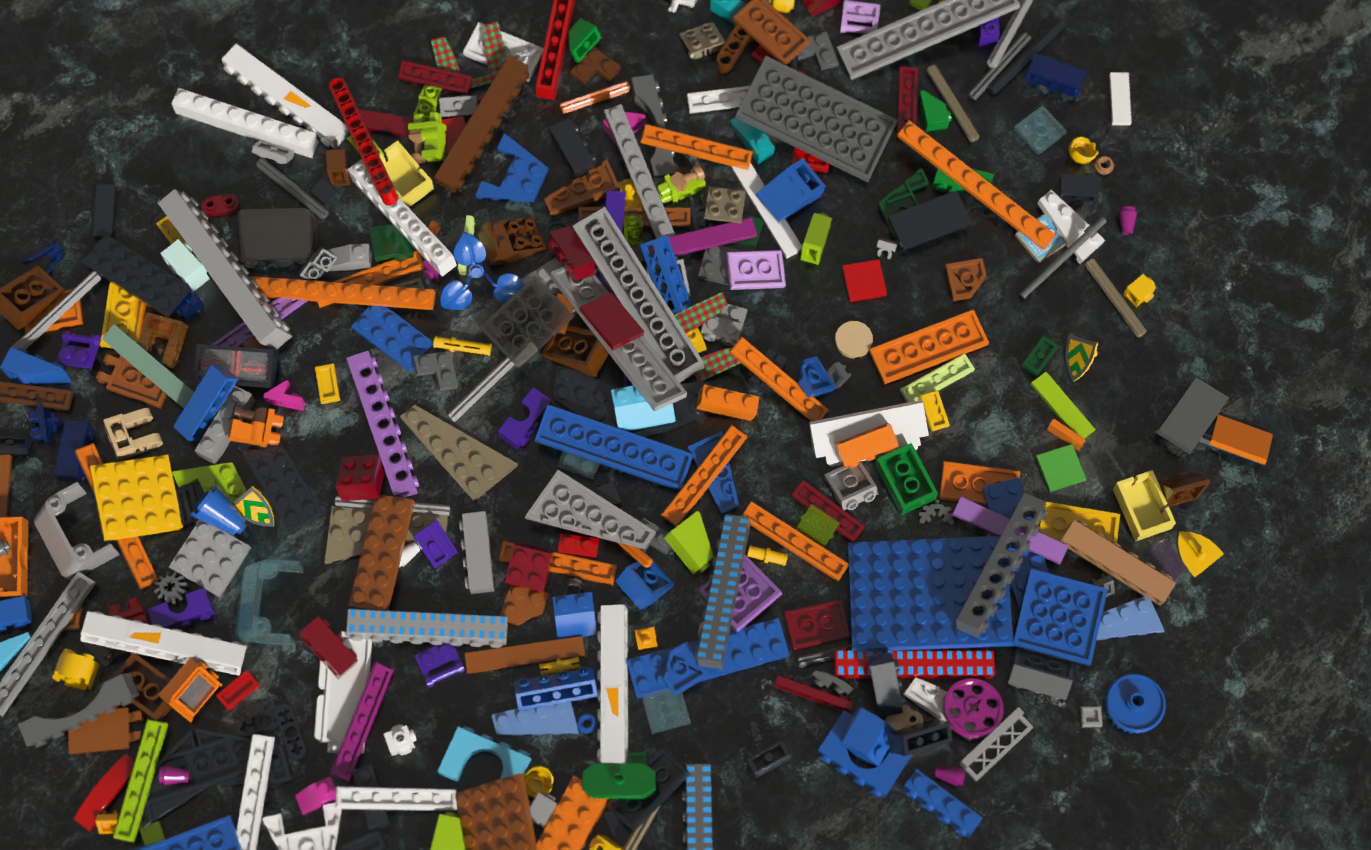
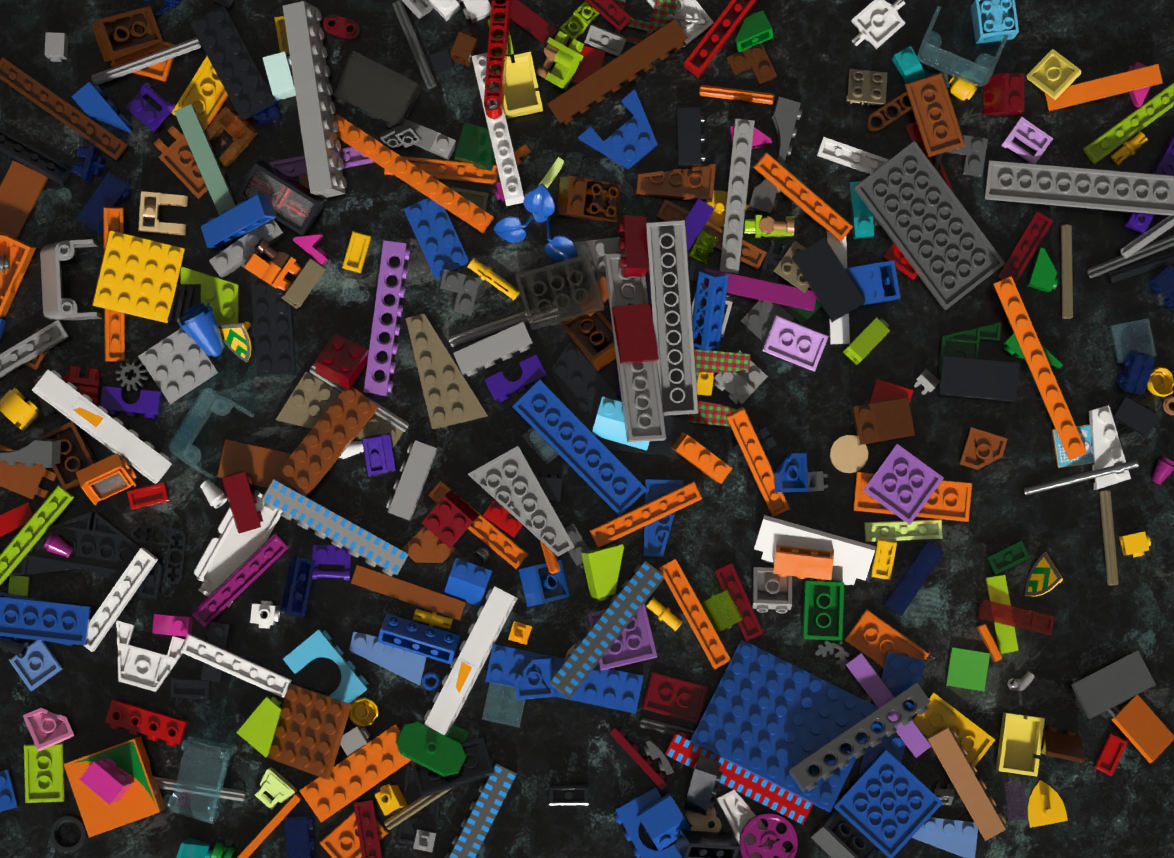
camera: 30 degrees right, 15 degrees up
(291, 430) = (303, 283): none -> dark tan brick
(300, 657) = (214, 495): none -> white cone
(330, 606) = (256, 461): none -> dark orange tile
(419, 698) = (297, 586): none -> clear blue brick
(492, 403) = (492, 349): none -> light grey brick
(755, 200) = (828, 280): none -> black tile
(866, 296) = (883, 421): none -> reddish brown slope
(915, 337) = (903, 484): none -> medium lavender plate
(969, 413) = (913, 578): none -> clear blue brick
(1058, 150) = (1136, 372): none -> clear blue brick
(1076, 401) = (1016, 617): none -> clear red tile
(1114, 457) = (1020, 684): none -> light grey arm
(1226, 477) = (1110, 754): none -> red tile

